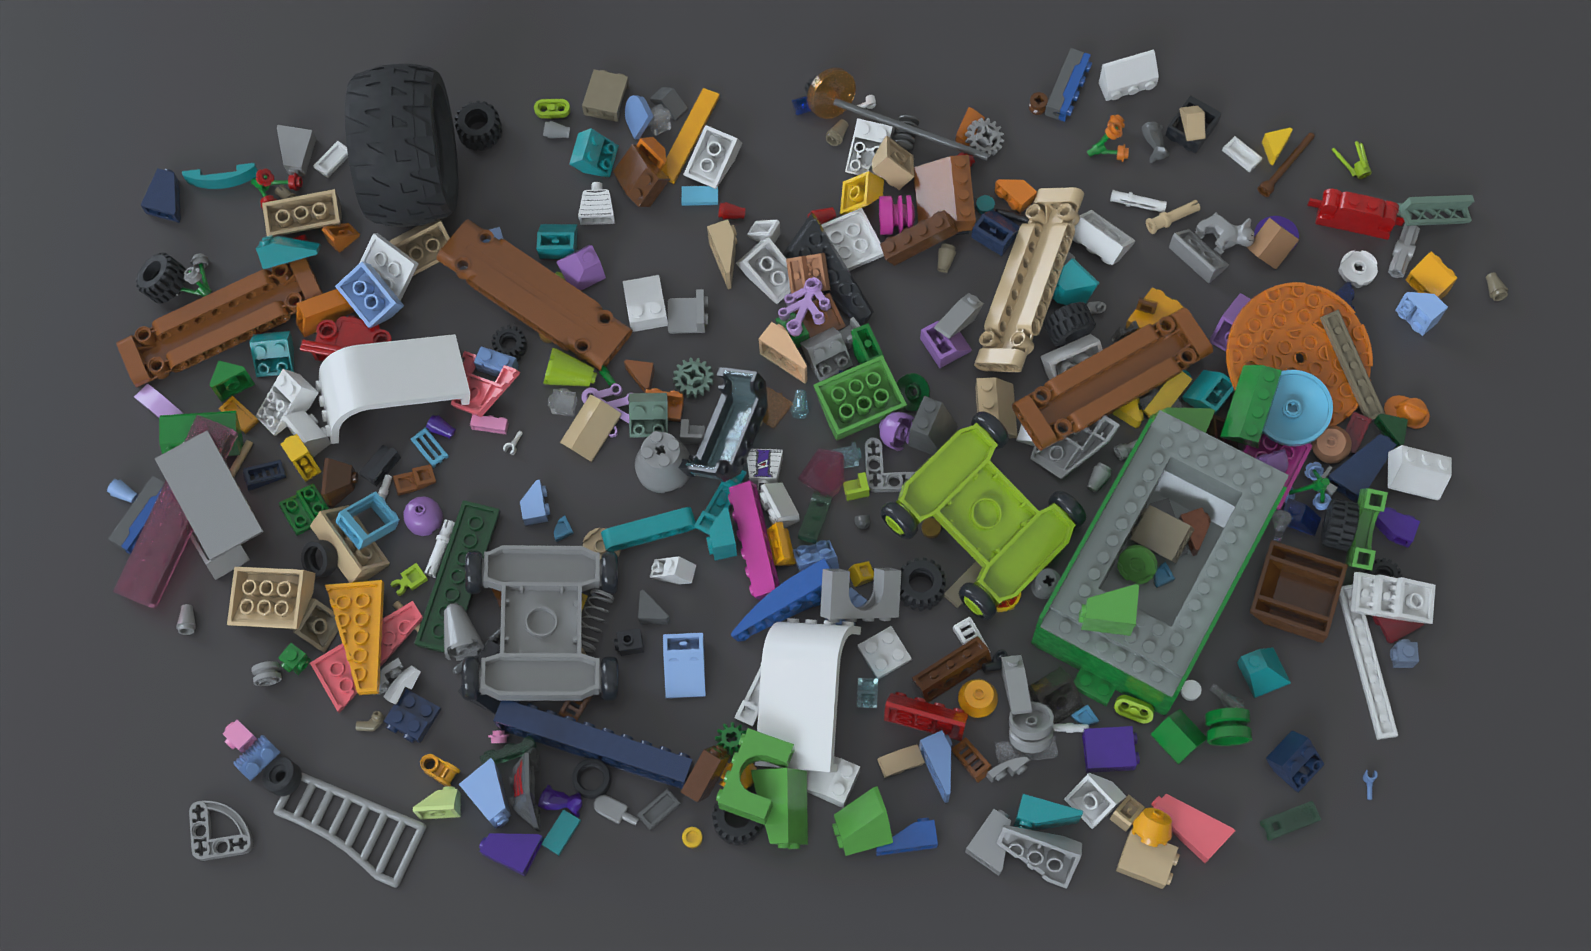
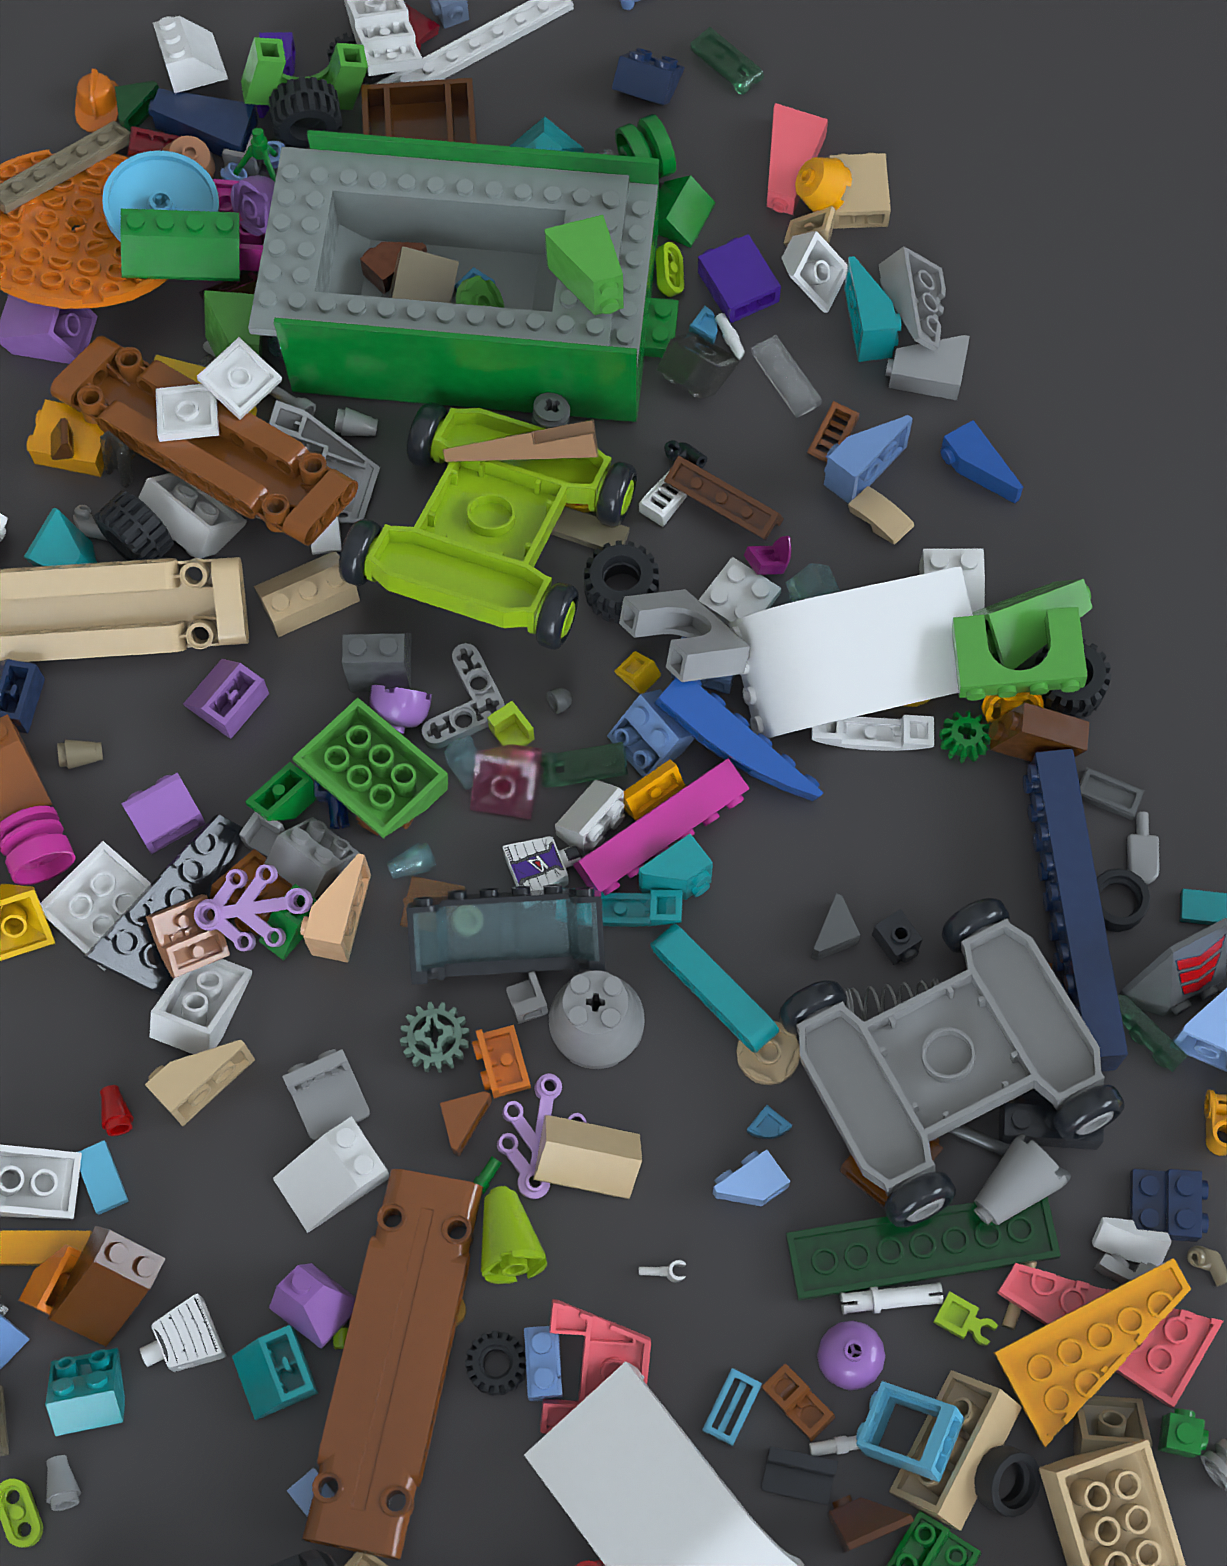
camera: 115 degrees left, 0 degrees up
(440, 426) = (691, 1404): dark purple cone -> none
(489, 424) = (649, 1323): bright pink piece -> none
(499, 736) = (1134, 1061): bright pink plate -> none
(557, 800) = (1171, 924): dark purple animal -> none
(563, 402) = (564, 1218): clear brick -> none
(647, 413) = (532, 1066): sand green slope -> none
(673, 570) = (760, 927): white slope -> none
(684, 665) = (892, 845): light blue slope -> none
(692, 837) = (1122, 733): yellow tile -> none
(765, 229) = (132, 1040): white slope -> none
(824, 215) = (73, 966): red cone -> none
(863, 824) = (998, 513): bright green slope -> none
(885, 285) = (163, 812): none -> medium lavender slope
(899, 677) = (770, 559): none -> magenta plate
(906, 386) = (325, 692): dark green dish -> none
(919, 237) = (66, 788): reddish brown brick -> none
(925, 716) = (808, 496): red slope -> none
(959, 316) = (178, 684): light grey slope -> none
(978, 698) = (747, 454): light orange cone -> none
(1013, 766) = (828, 390): light grey slope -> none
(1016, 684) = (712, 405): light grey slope -> none
(1019, 569) = (564, 441): none -> medium nougat wedge
(1033, 730) = (761, 366): light grey wheel -> none
(1130, 371) = (186, 413): none -> white tile
(1138, 405) = (239, 378): none -> white tile
(1209, 391) = (168, 326): teal slope -> none

